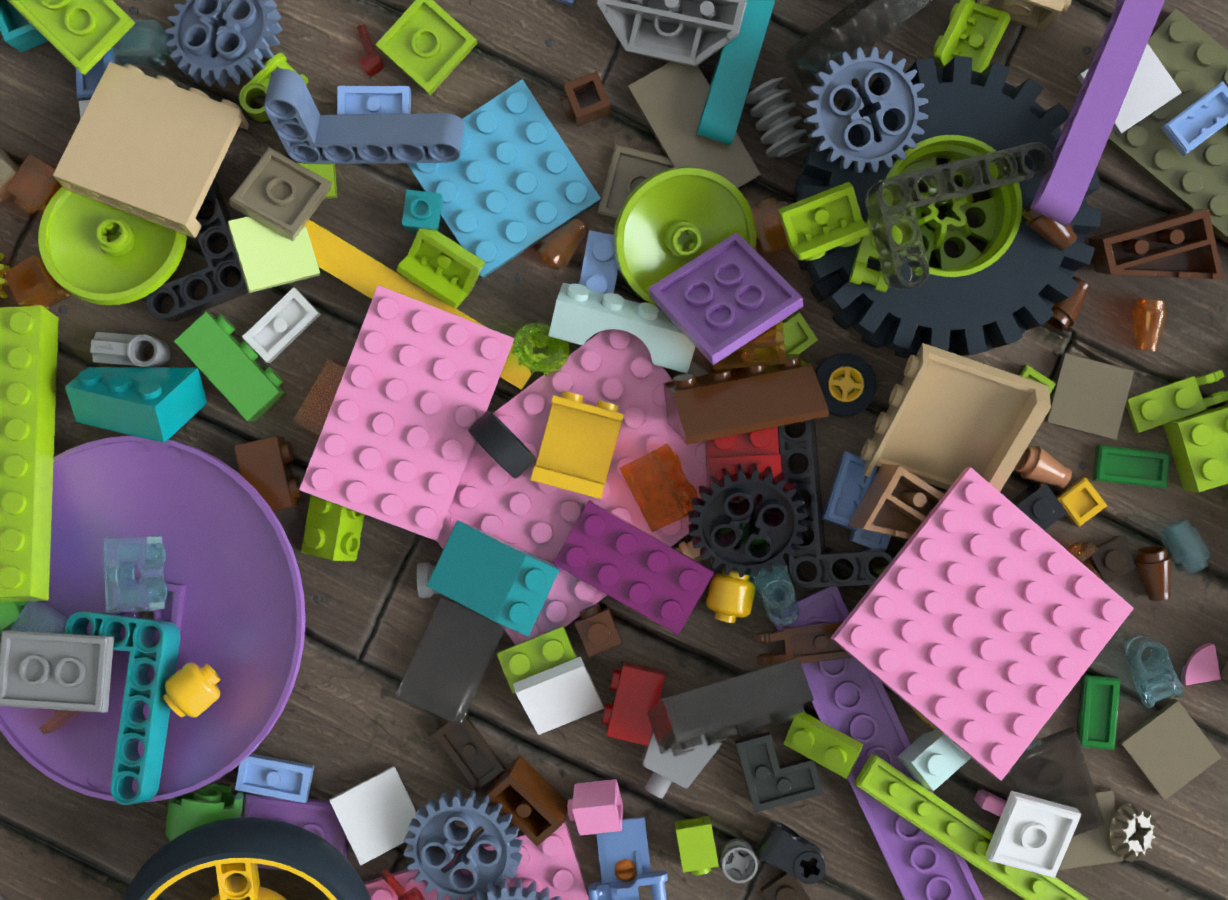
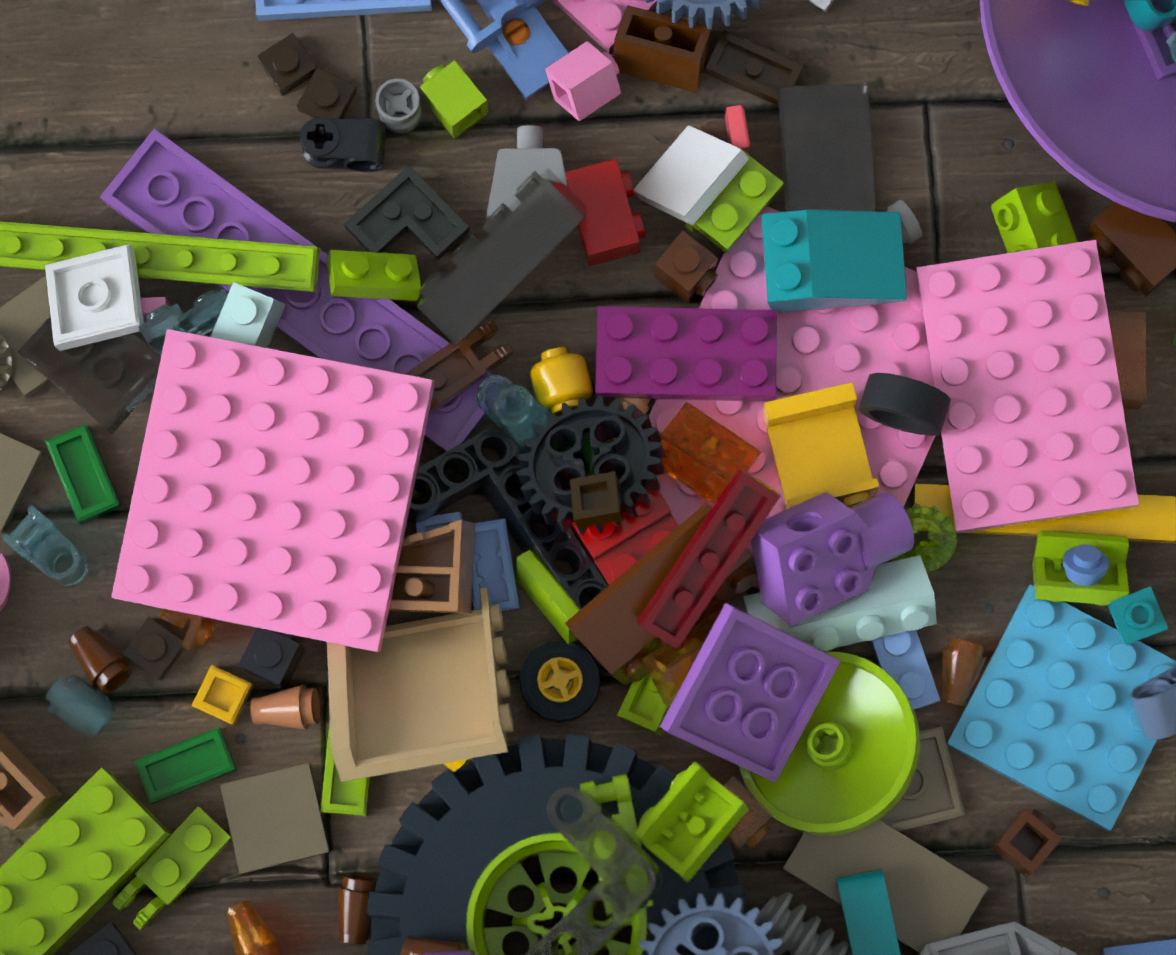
camera: 155 degrees right, 10 degrees down
(437, 266) = (1085, 565): none -> medium blue plate
(506, 711) = (737, 127): none -> coral tile
(617, 367) = (826, 552): none -> medium lavender brick
(706, 404) = (708, 558): none -> dark red plate
(764, 488) = (596, 499): none -> dark brown plate
(822, 451) = (546, 593): none -> lime tile
(985, 785) = (196, 321): none -> clear light blue plate

